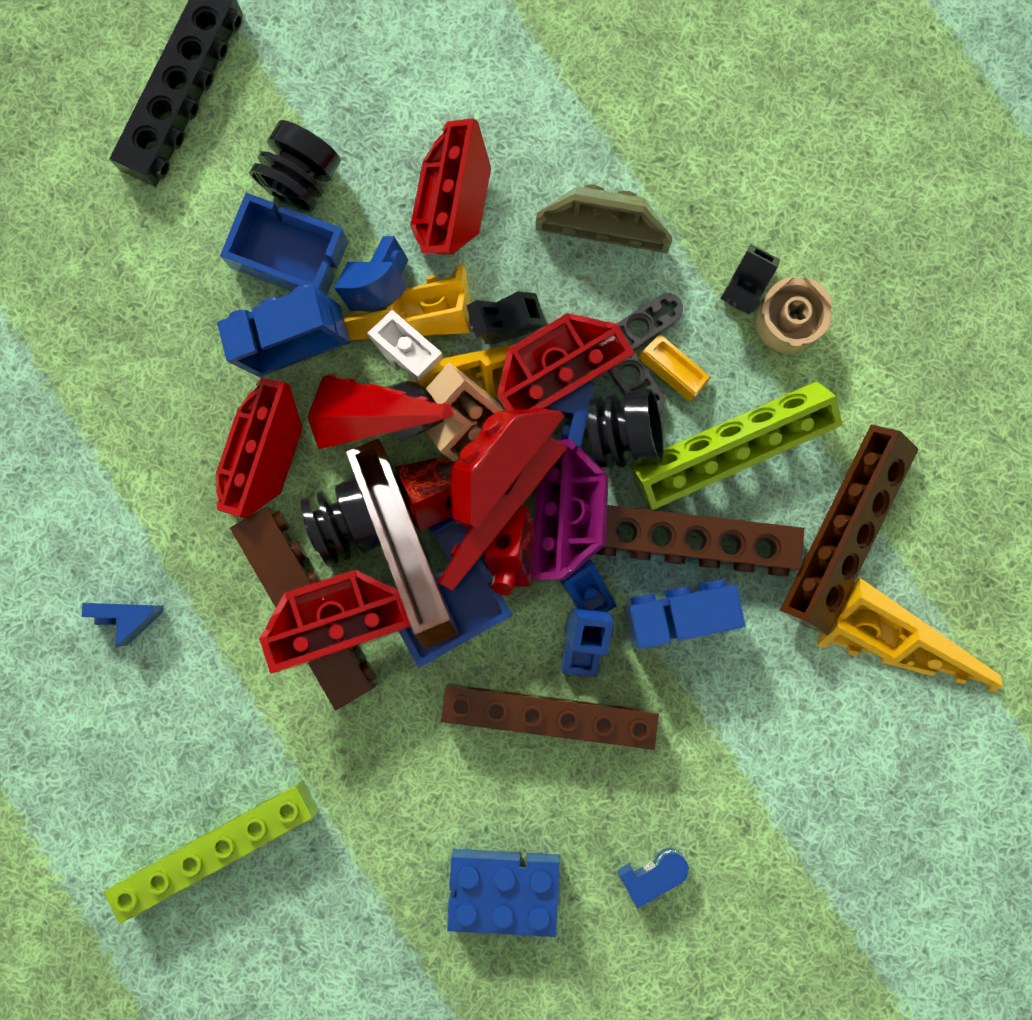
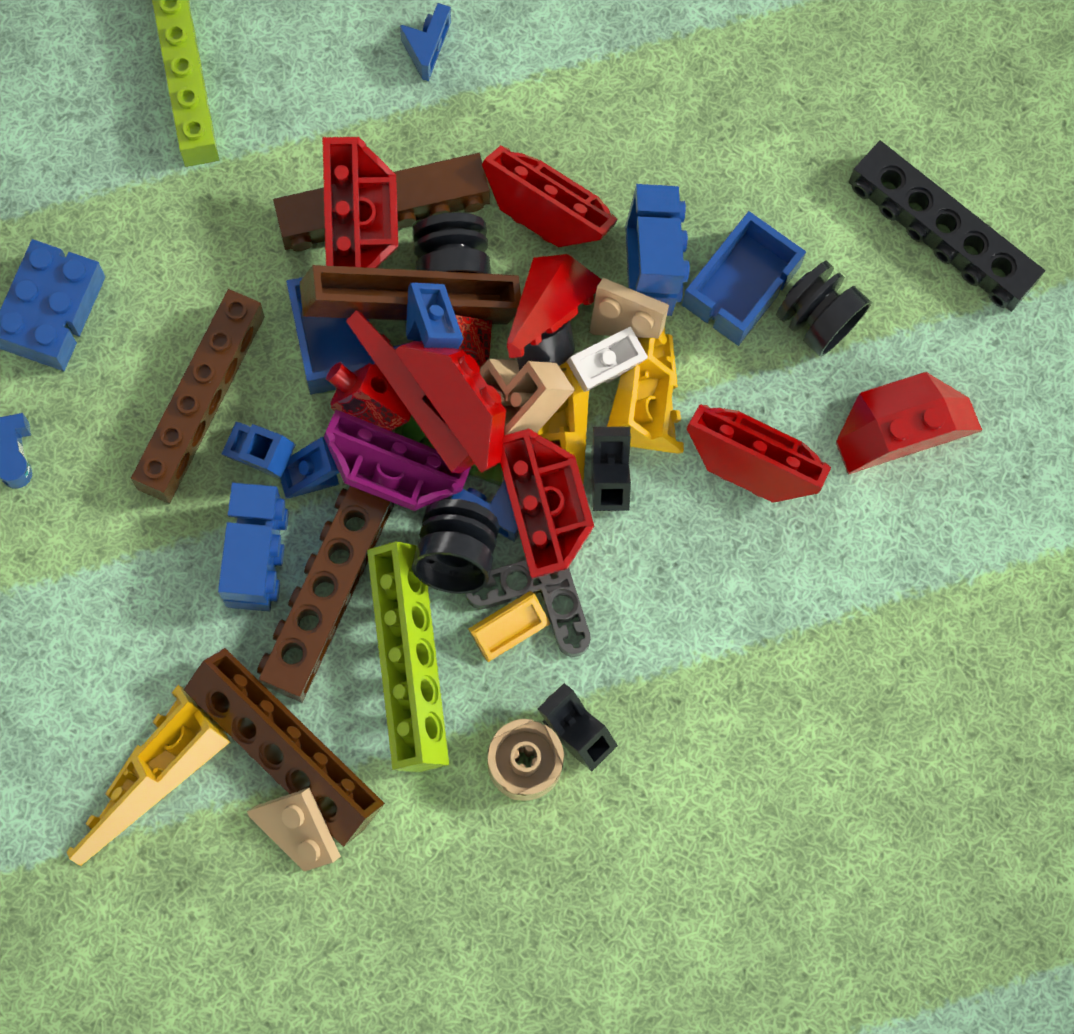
camera: 100 degrees right, 10 degrees down
(352, 346) = (622, 307): none -> tan wing
(377, 282) = (683, 356): blue brick -> none
(379, 77) = (904, 421): none -> red wedge
(425, 507) = (432, 317): none -> blue slope
(606, 218) = (688, 603): olive wedge -> none
(913, 495) = (297, 829): none -> tan wing

